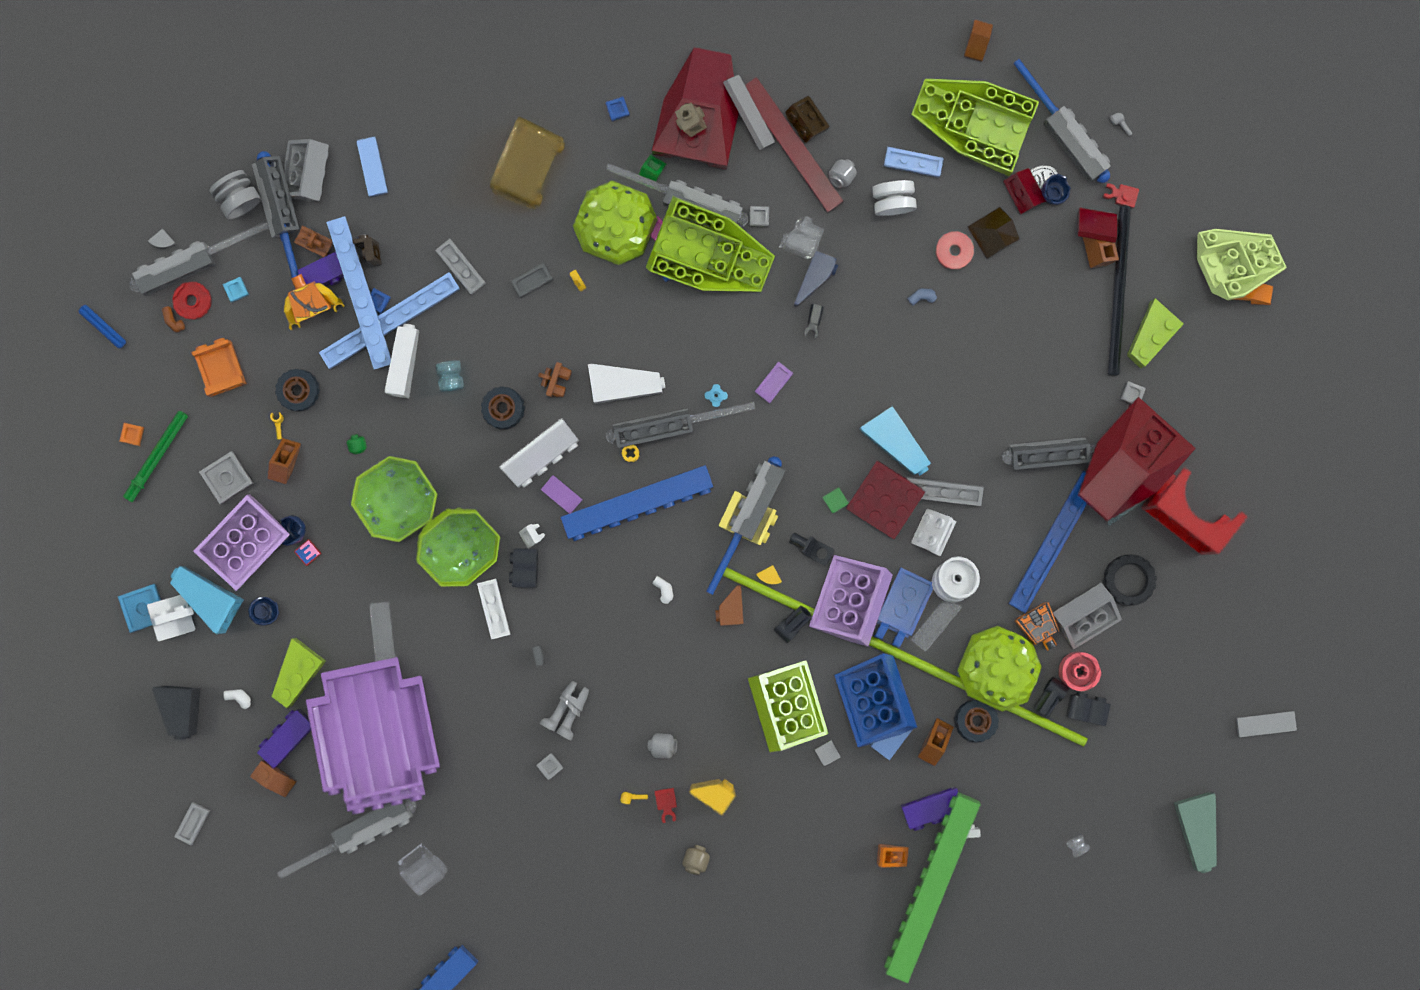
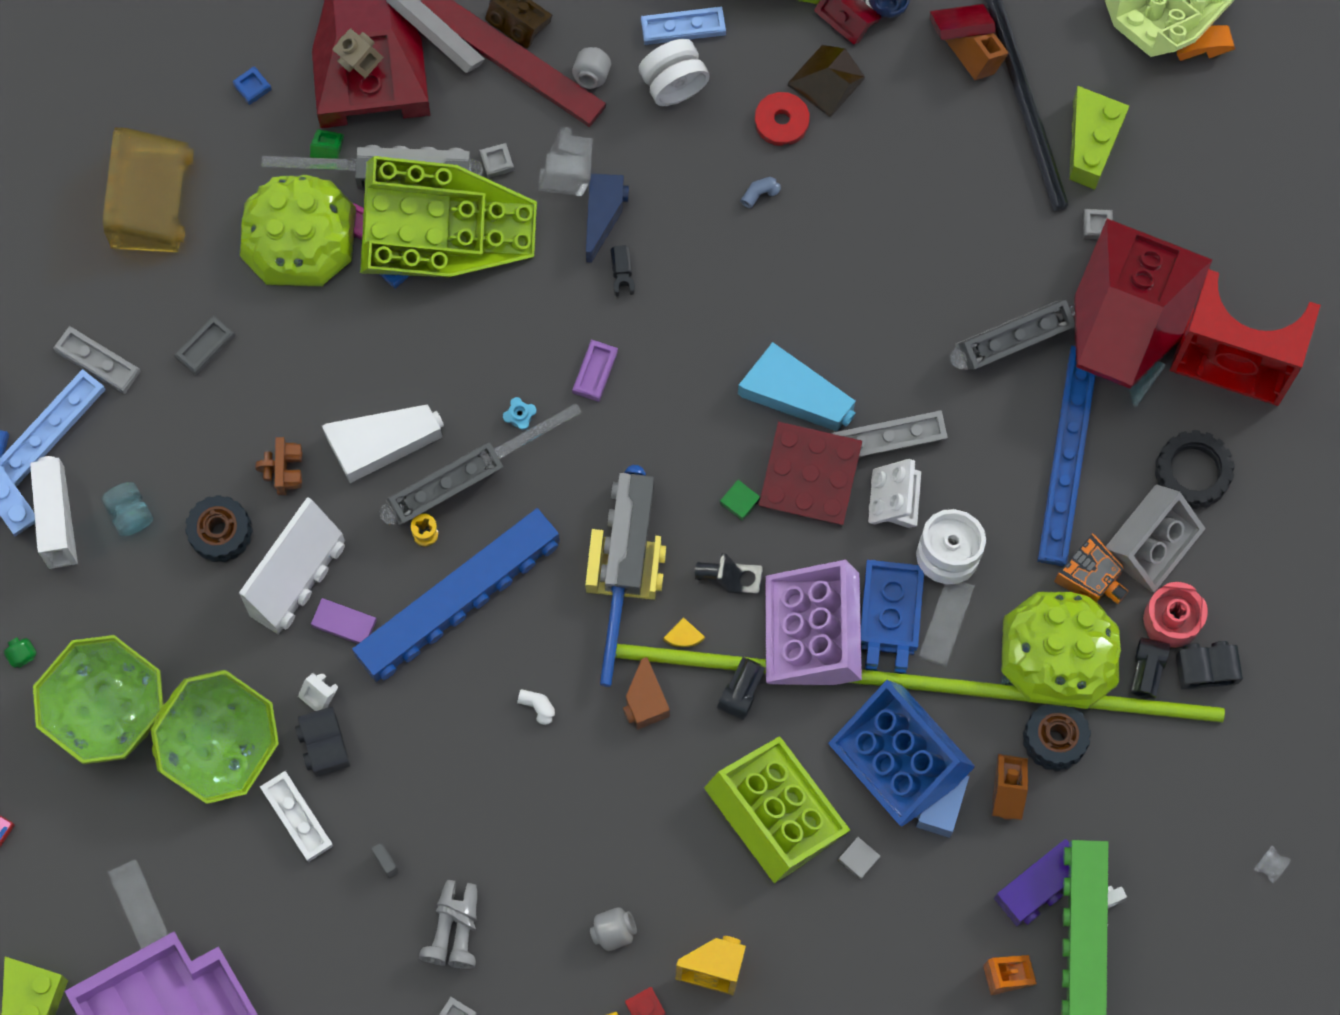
camera: 20 degrees left, 15 degrees down
(577, 280) = (269, 322): yellow tile -> none

